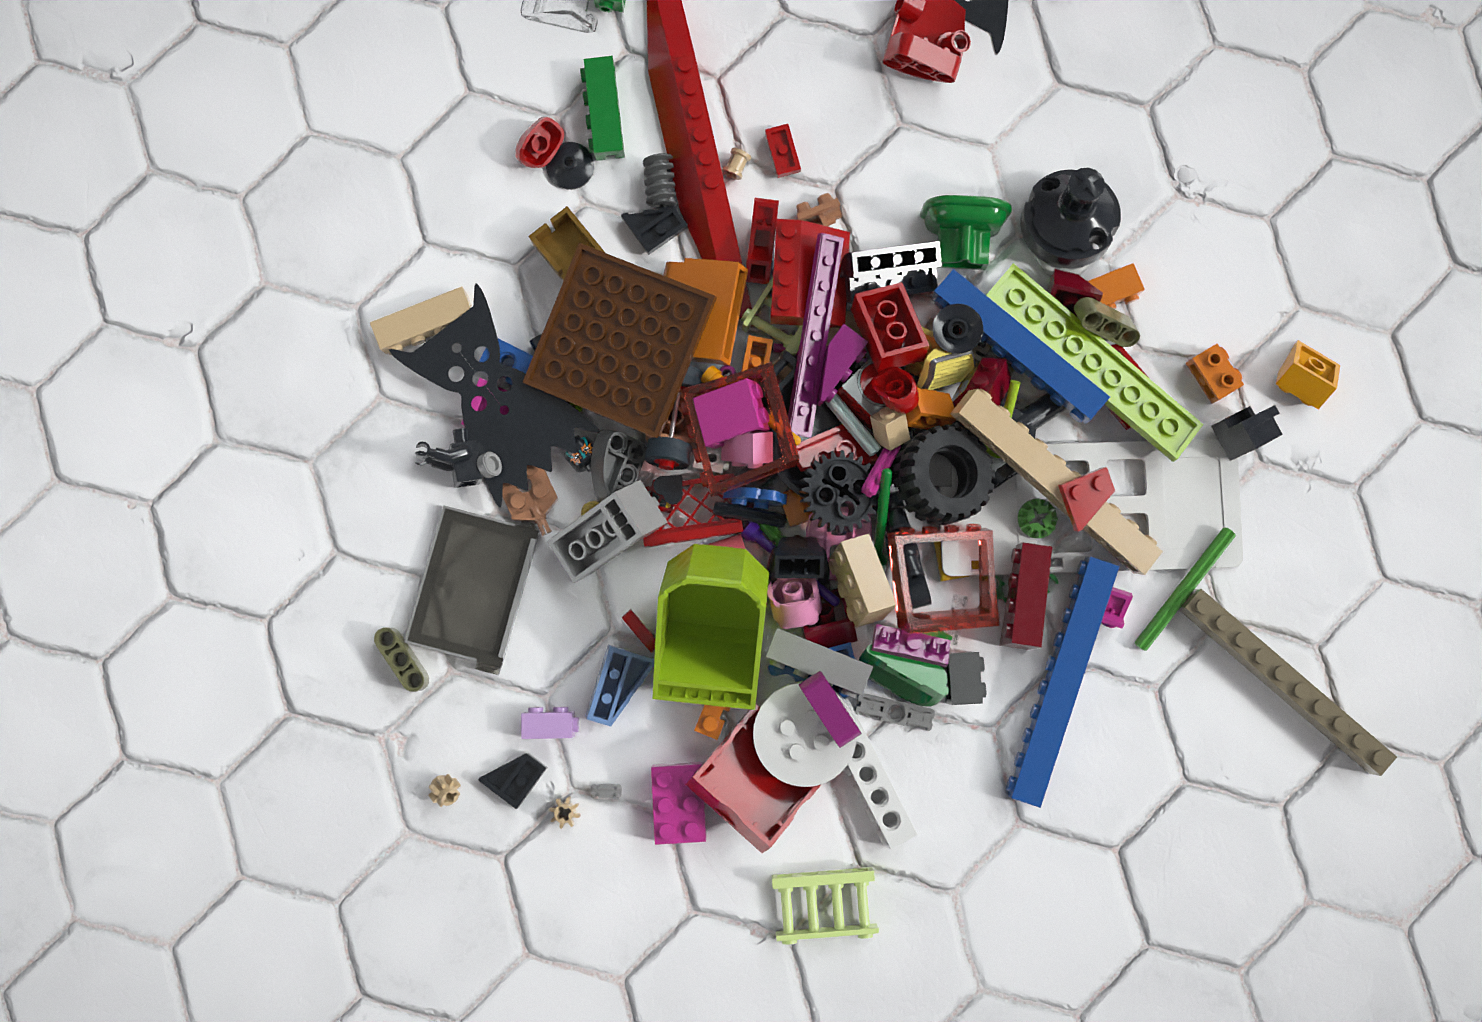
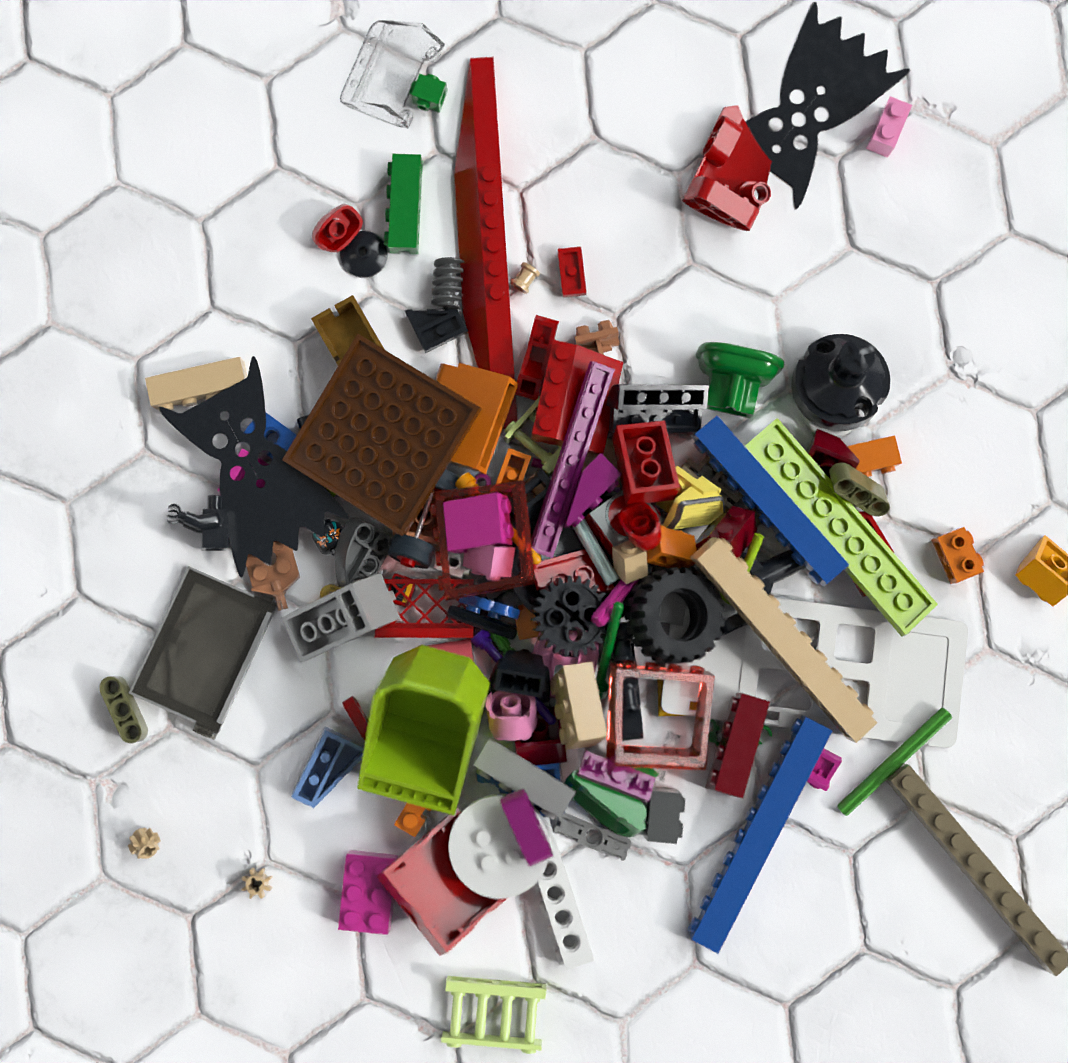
camera: 10 degrees right, 0 degrees up
(489, 464) = (237, 535): light grey tile -> none
(515, 779) = (214, 843): black wing -> none
(548, 725) = (255, 795): lavender brick -> none
(606, 791) = (300, 868): light grey piece -> none
(670, 487) = (409, 584): black tile -> none
(957, 316) = (714, 462): black dish -> none
(1026, 515) = (751, 664): bright green gear -> none
(1086, 495) = (810, 658): wing -> none
(1247, 431) = (979, 618): black plate -> none

